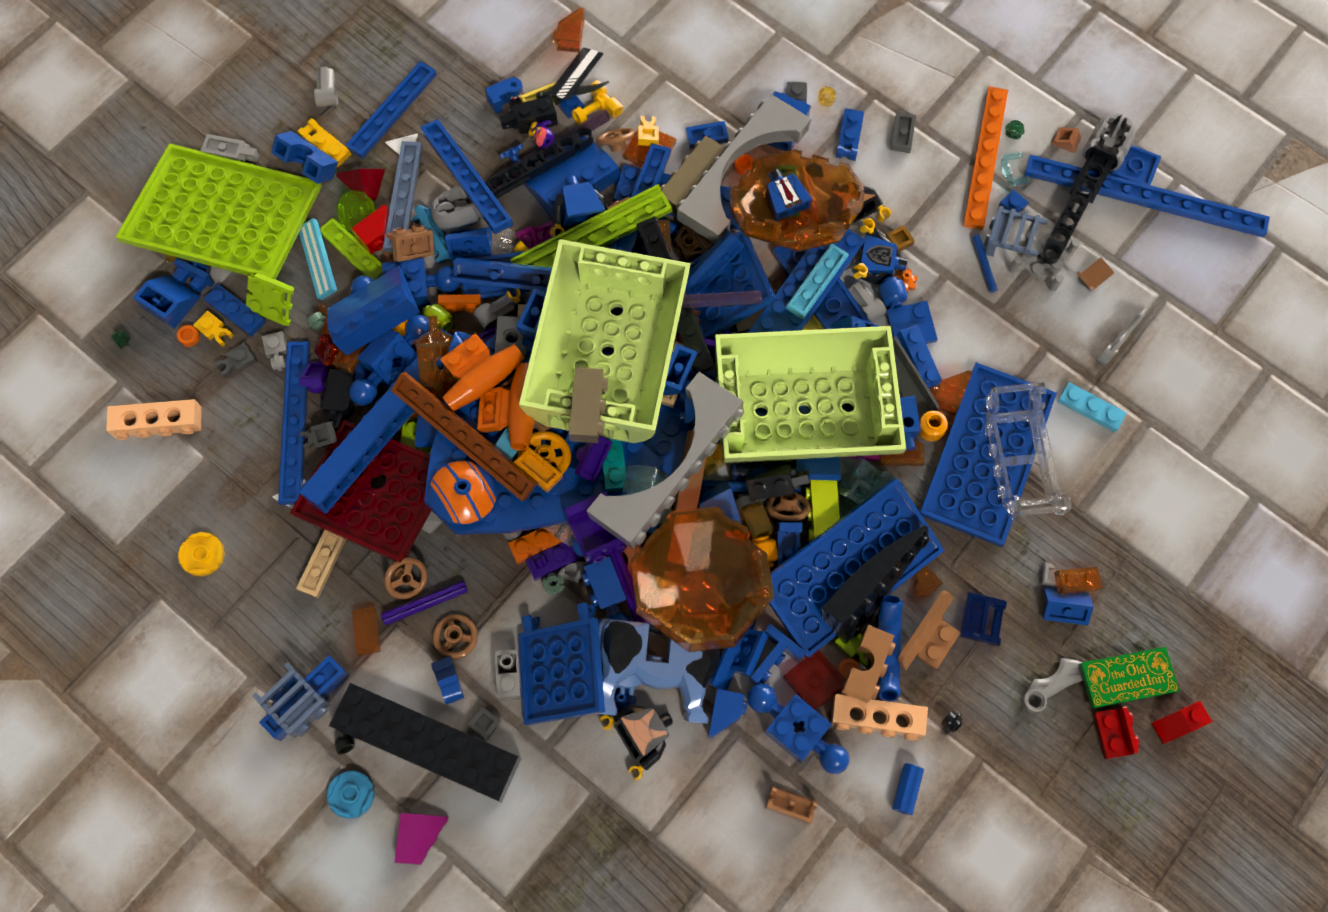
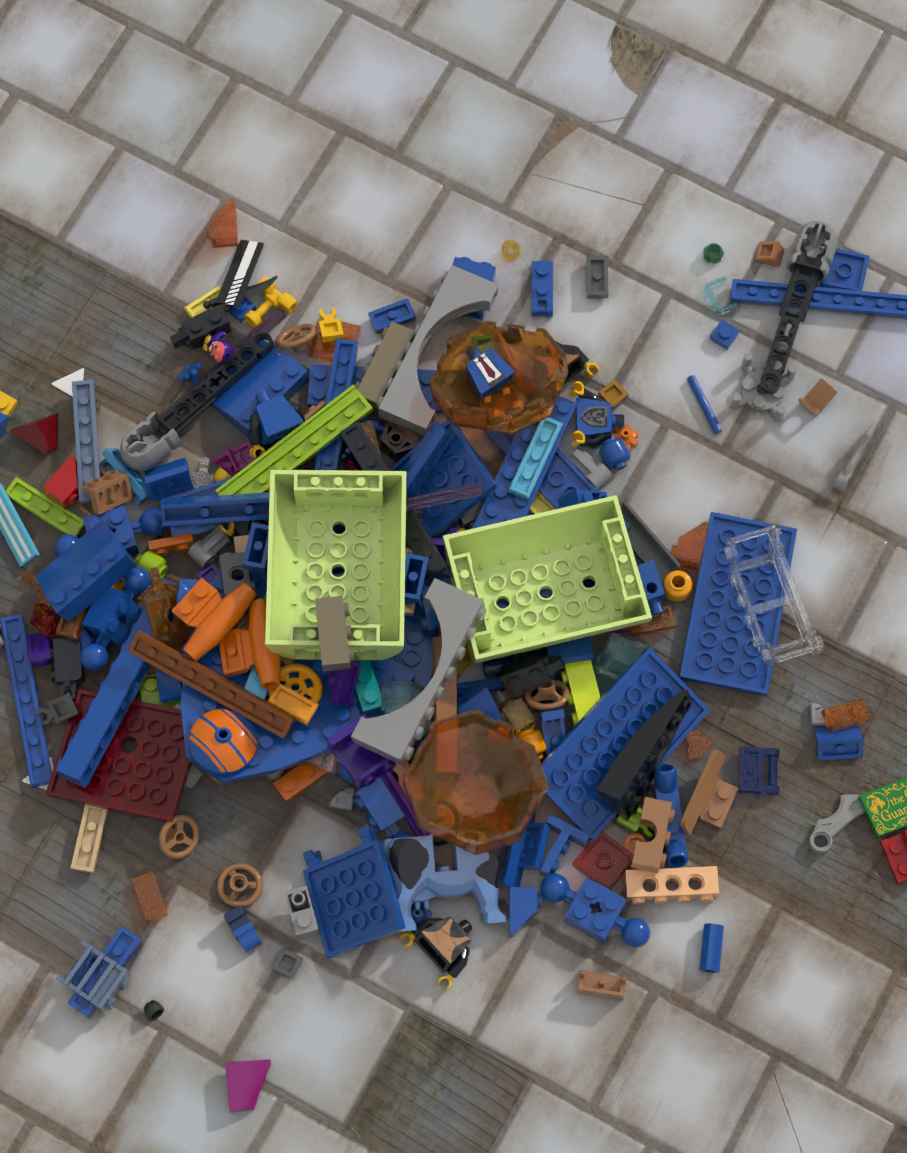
camera: 10 degrees left, 0 degrees up
(316, 321) = (25, 591): sand green plate -> none
(350, 794) = (170, 1056): dark azure tile -> none
(353, 208) = (38, 465): clear neon green tile -> none
(391, 110) = (51, 347): blue plate -> none
(424, 602) = (201, 858): dark purple axle -> none
(425, 742) = (233, 992): black brick -> none
(466, 176) = (151, 410): blue plate -> none
(503, 93) = (167, 307): blue leg -> none
(551, 560) = (320, 792): dark purple plate -> none
(553, 589) = (331, 819): sand green plate -> none
(743, 163) = (437, 342): orange tile -> none
(797, 90) = (478, 251): dark grey plate -> none
(912, 315) = (640, 483): blue plate -> none
(918, 352) = (653, 515): blue plate -> none
(952, 722) = (743, 876): black plate -> none
(985, 158) = (687, 289): orange plate -> none
(1000, 229) = (714, 363): sand blue plate -> none
(1092, 407) = (835, 536): medium azure plate -> none

